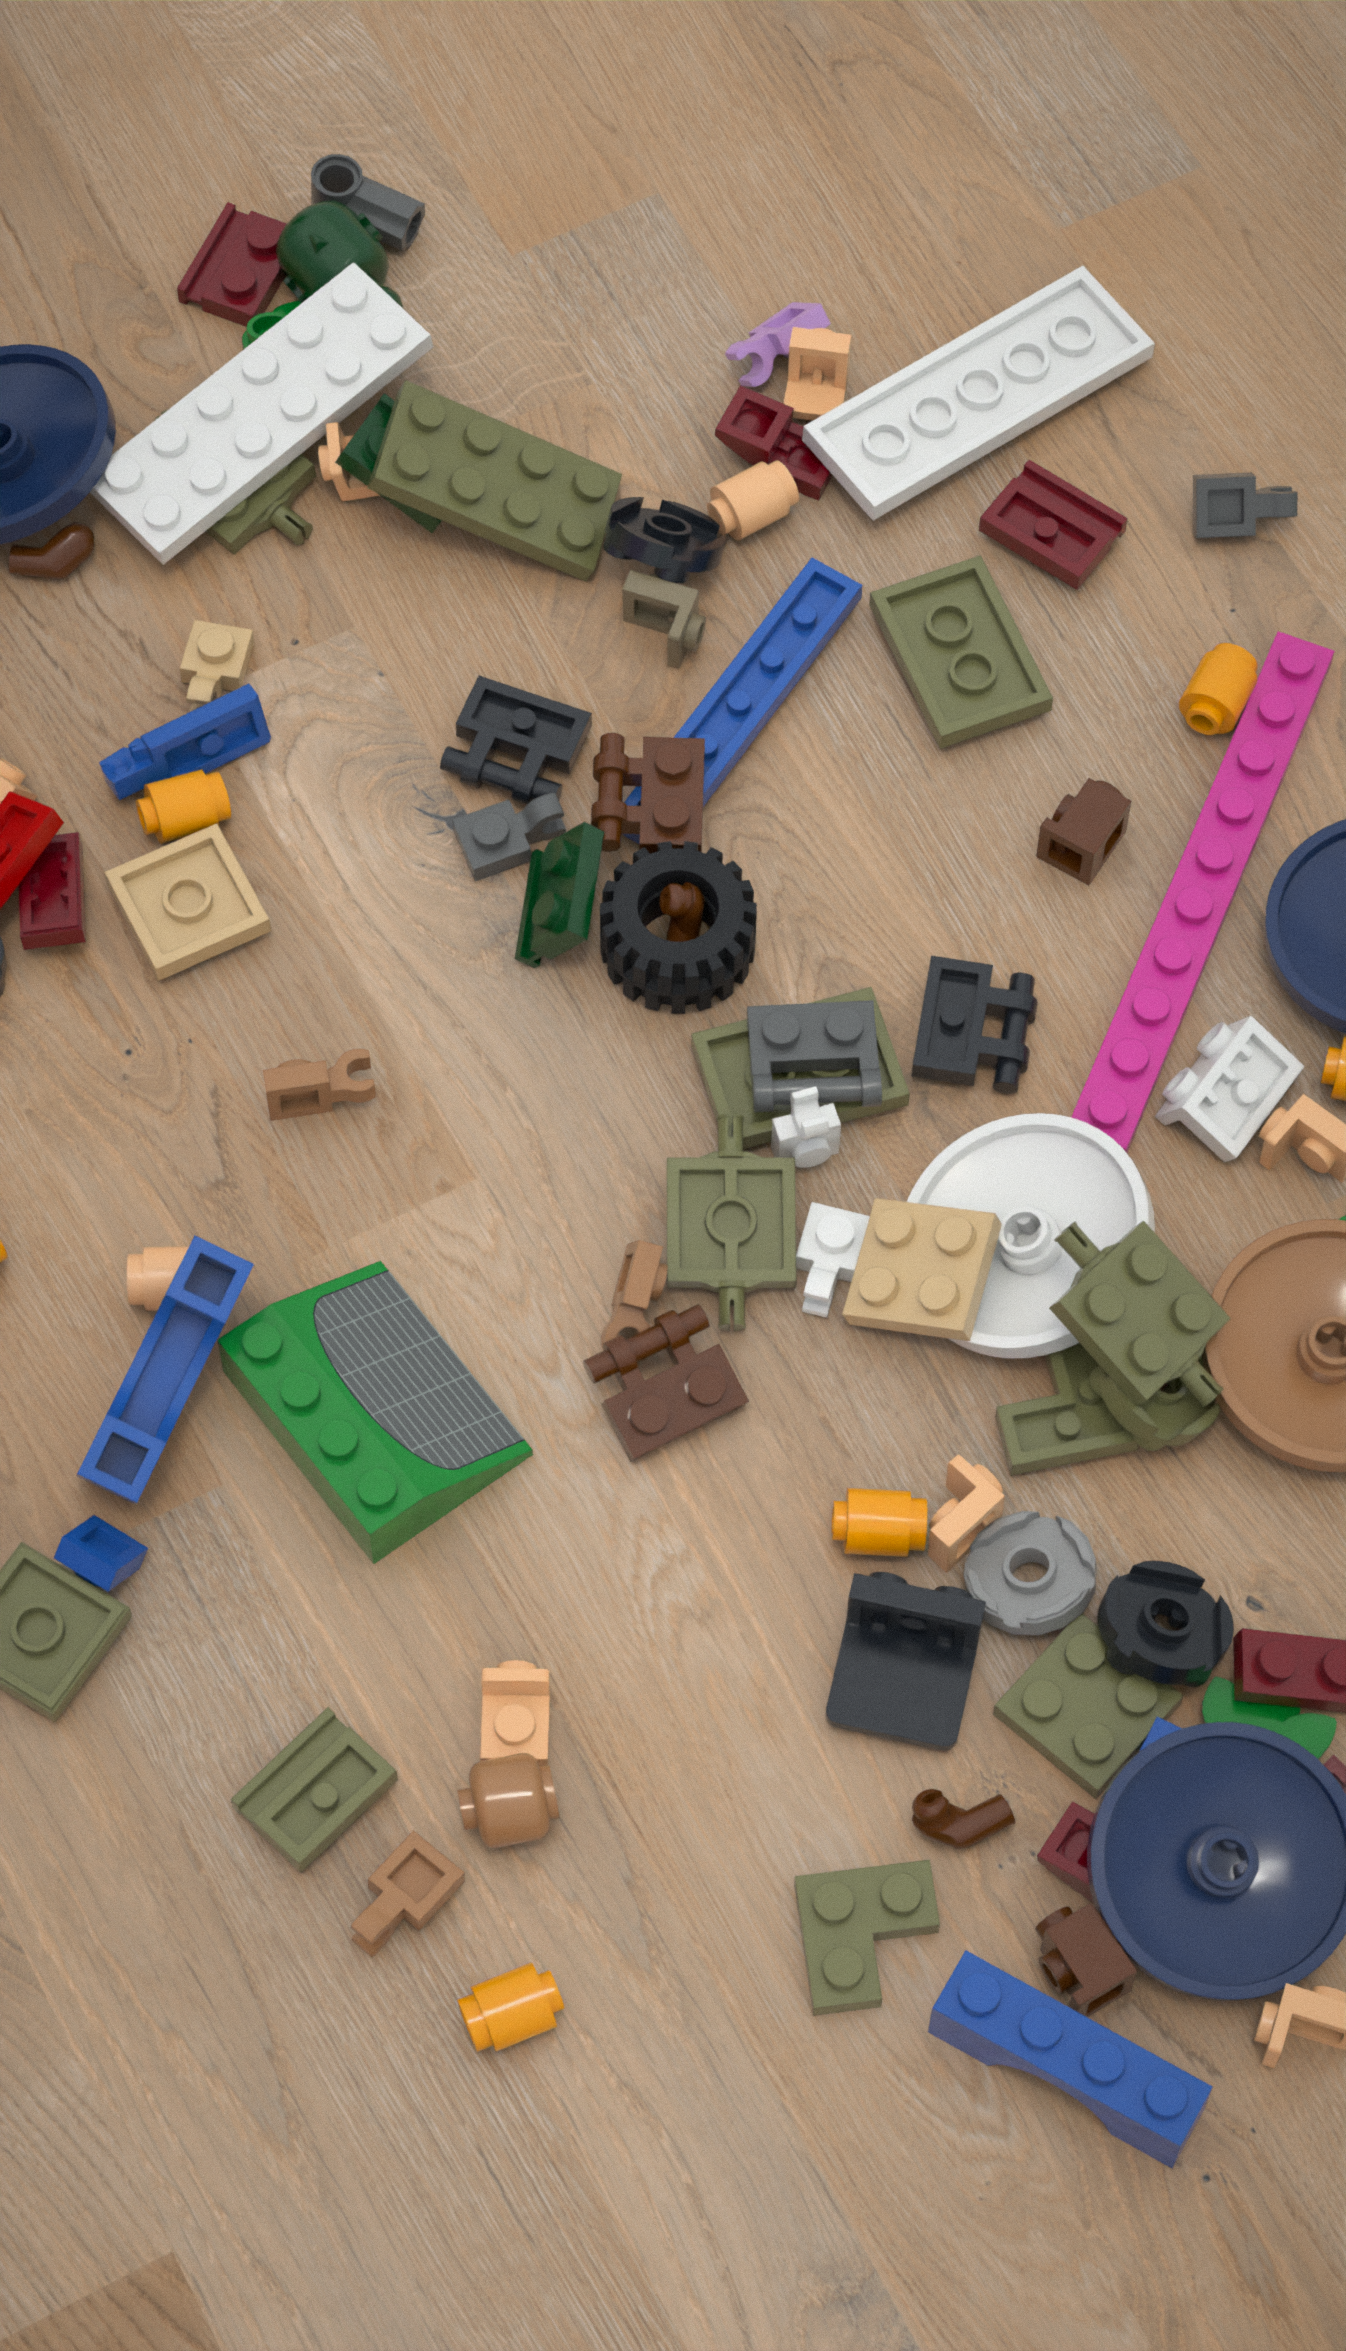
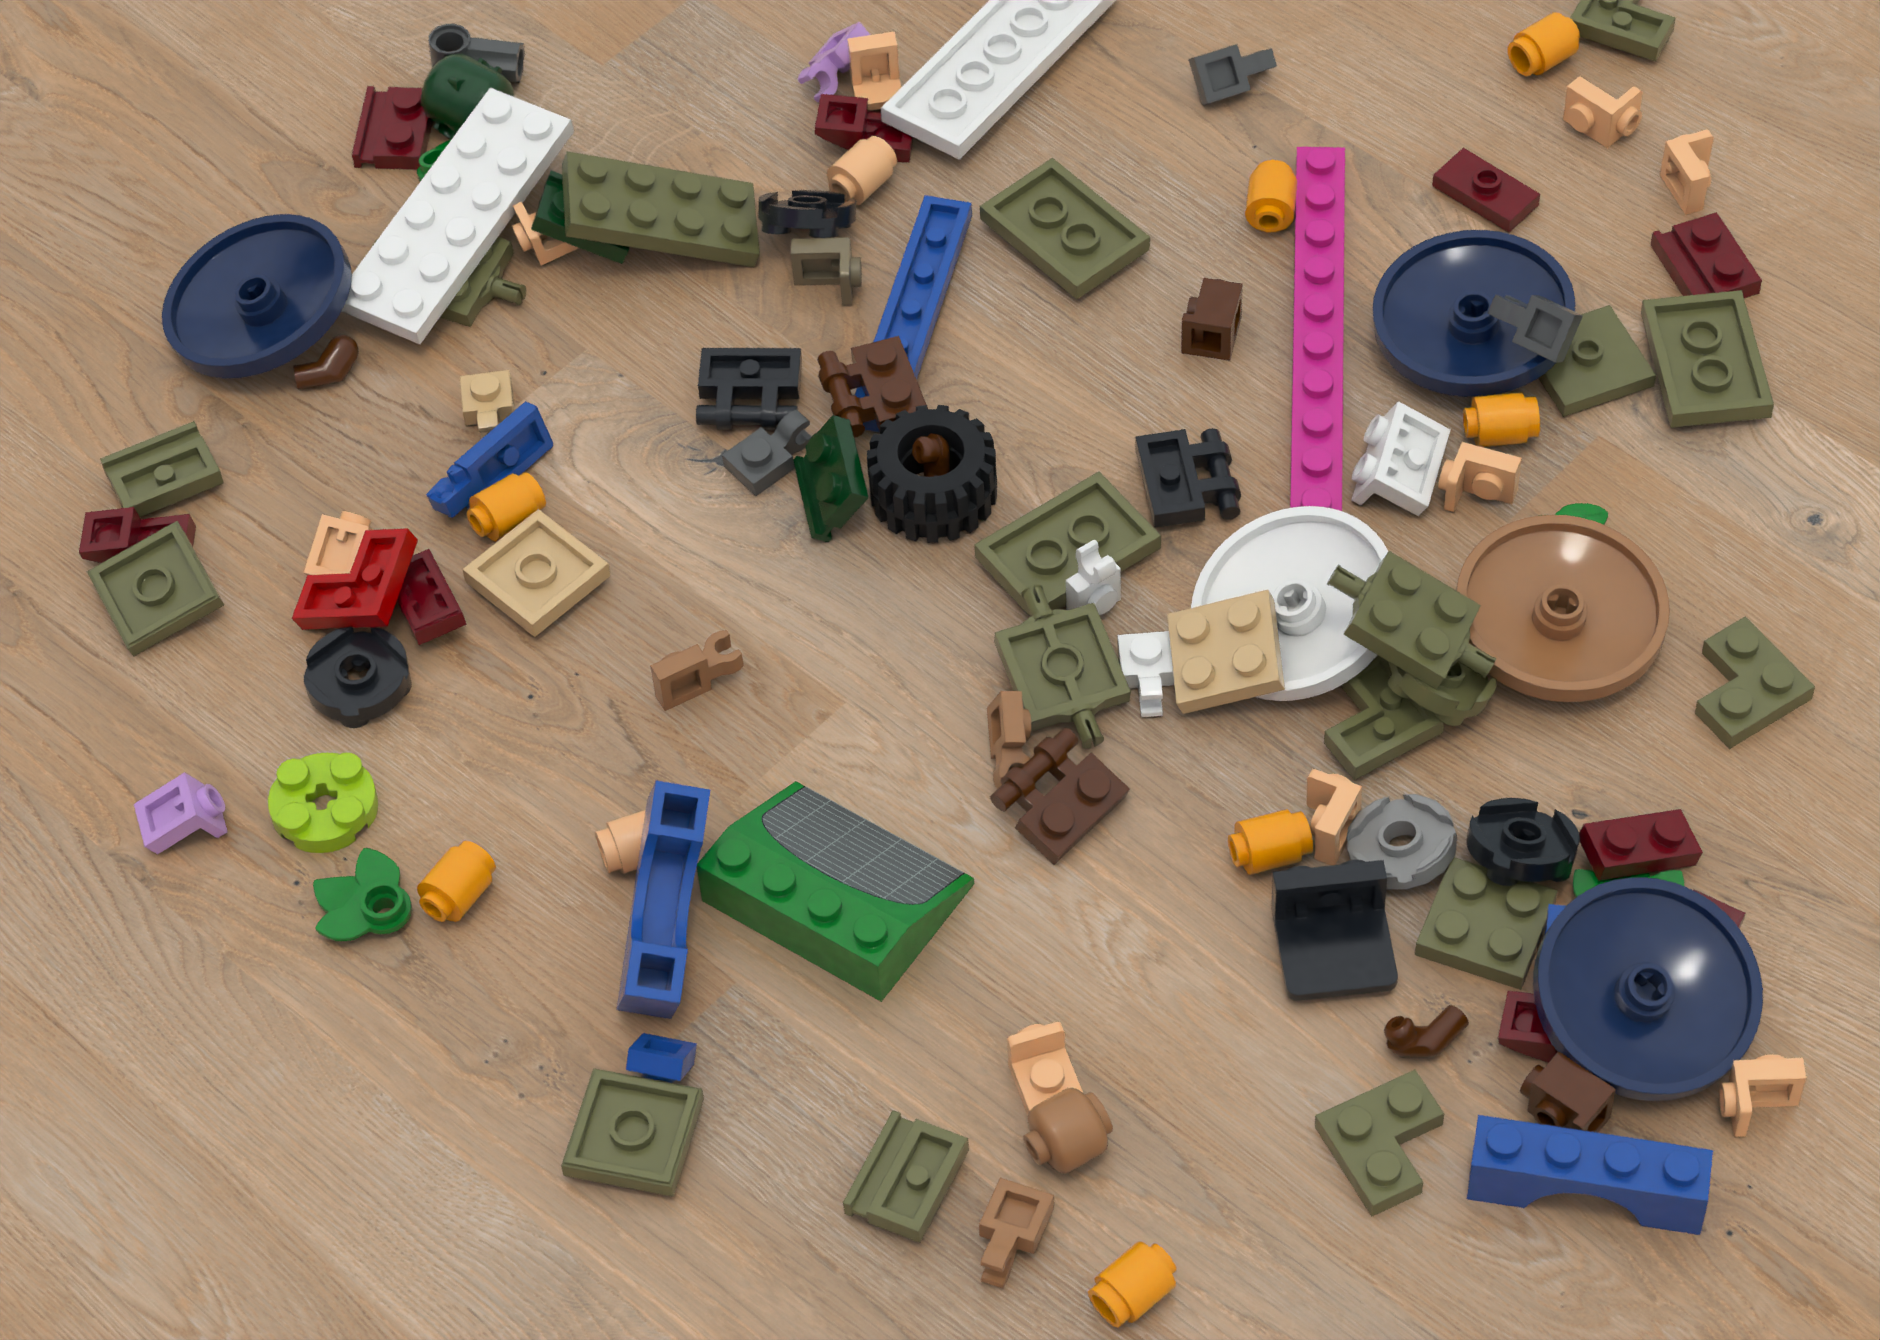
camera: 15 degrees left, 10 degrees down
(814, 1040) = (1073, 518): dark grey plate -> none
(1052, 524) = (1096, 124): dark red plate -> none

